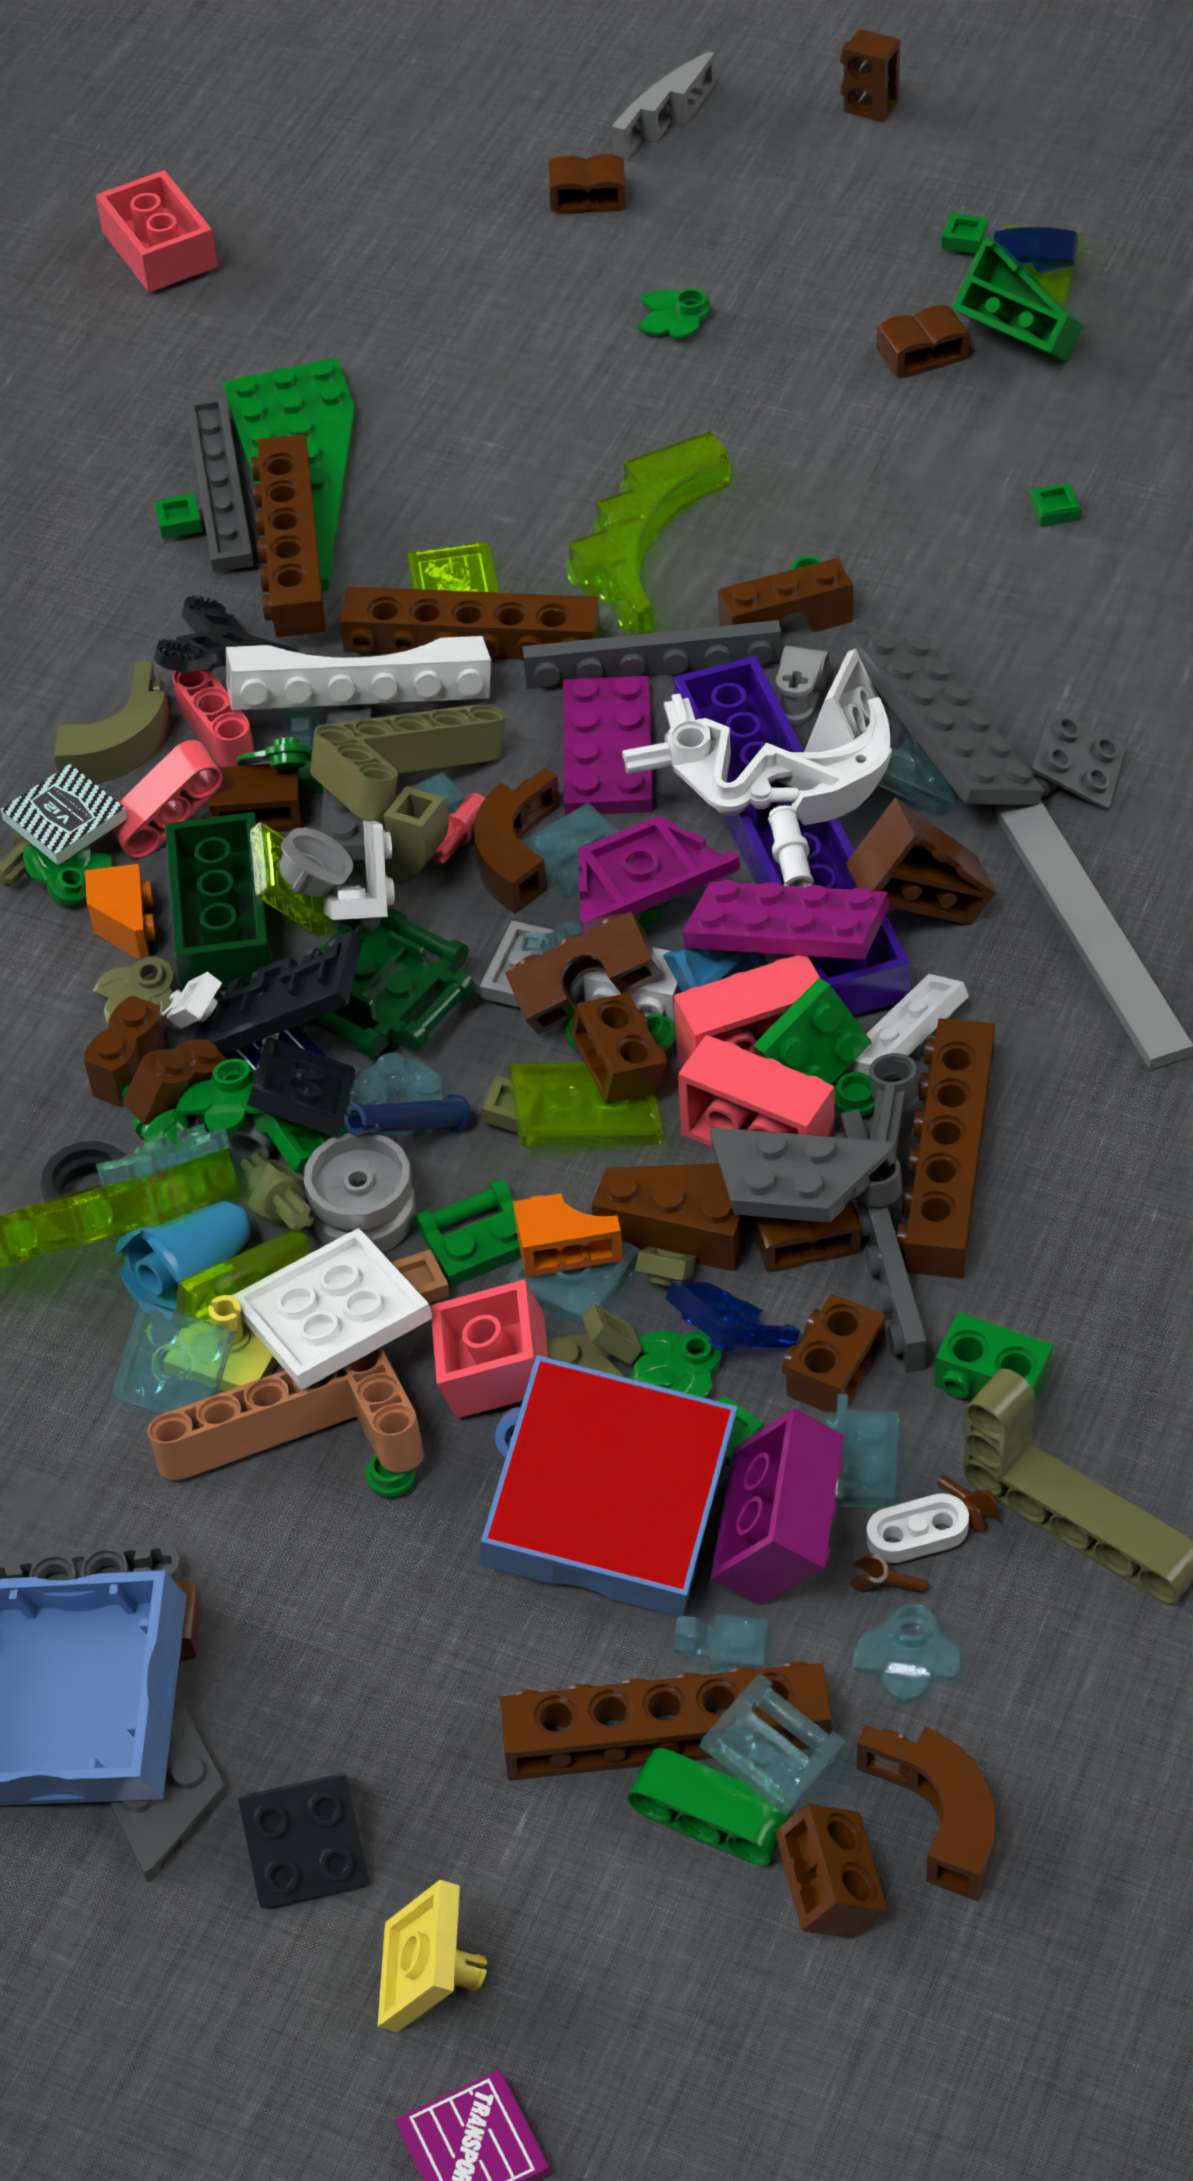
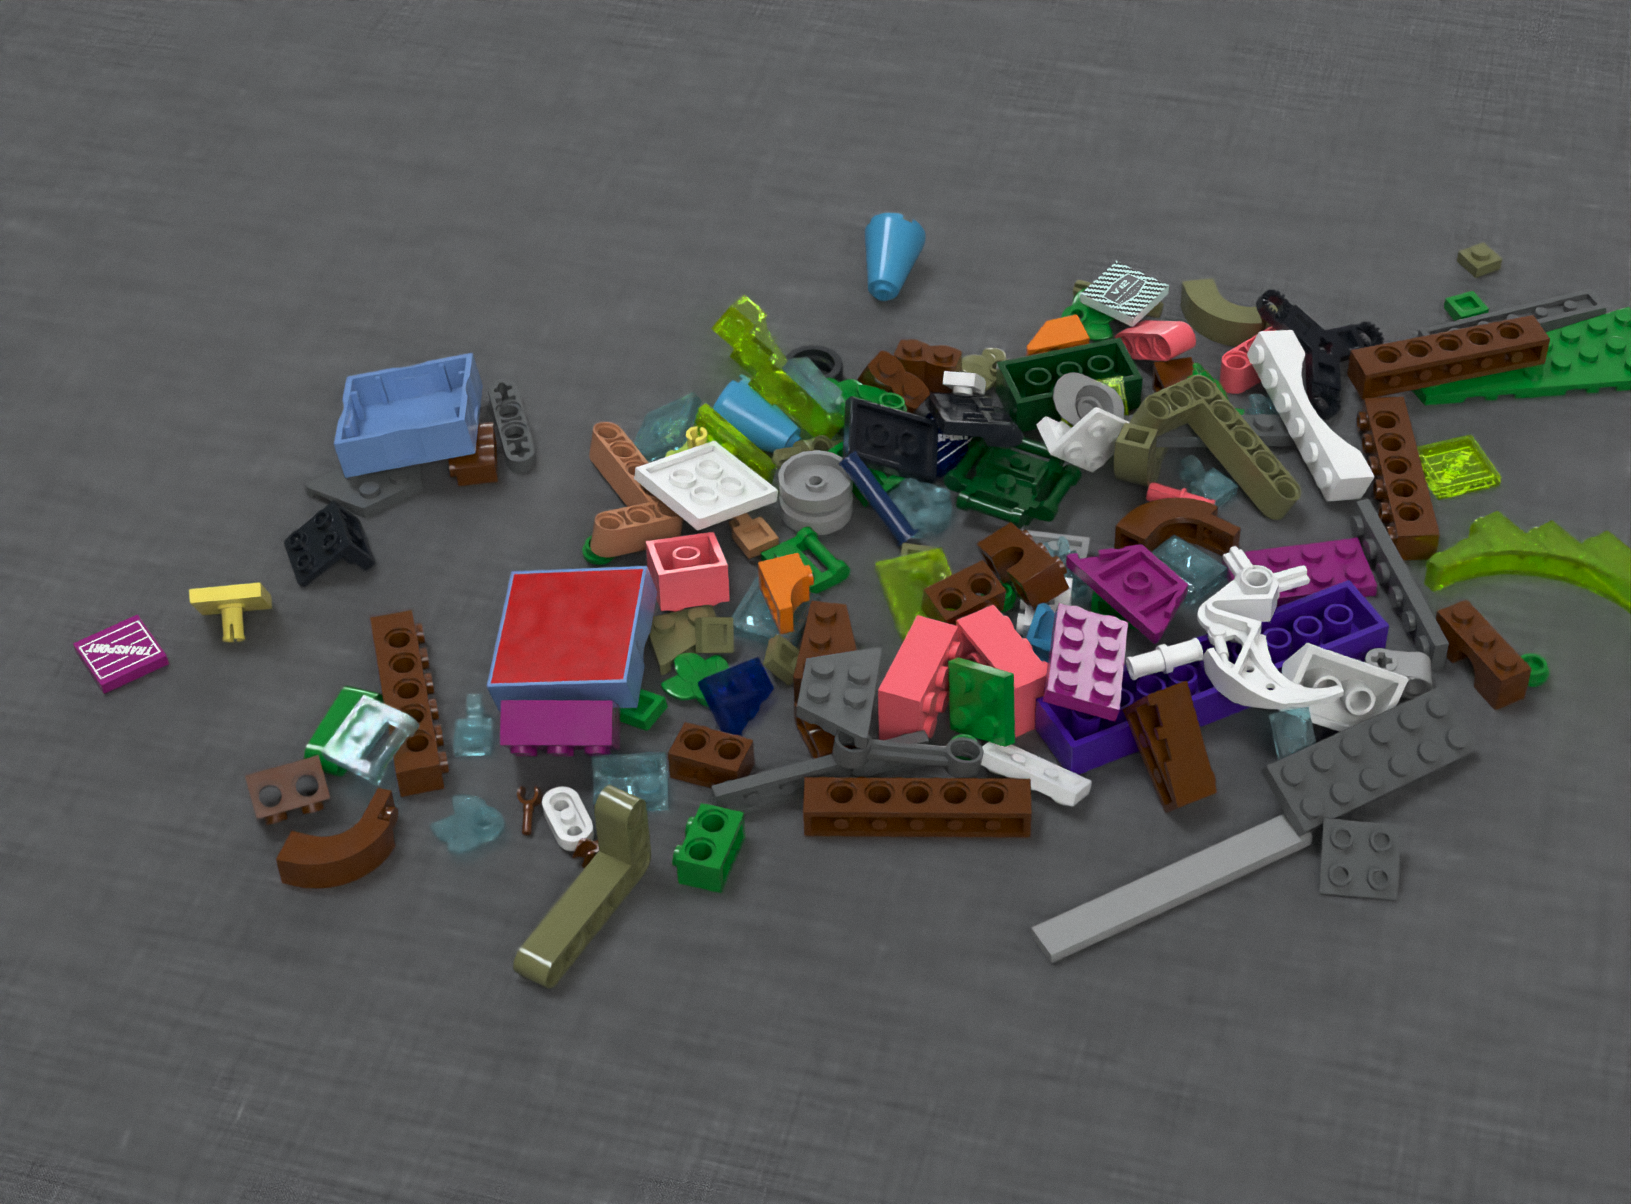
camera: 80 degrees right, 5 degrees down
(81, 492) = (1479, 260): none -> olive plate

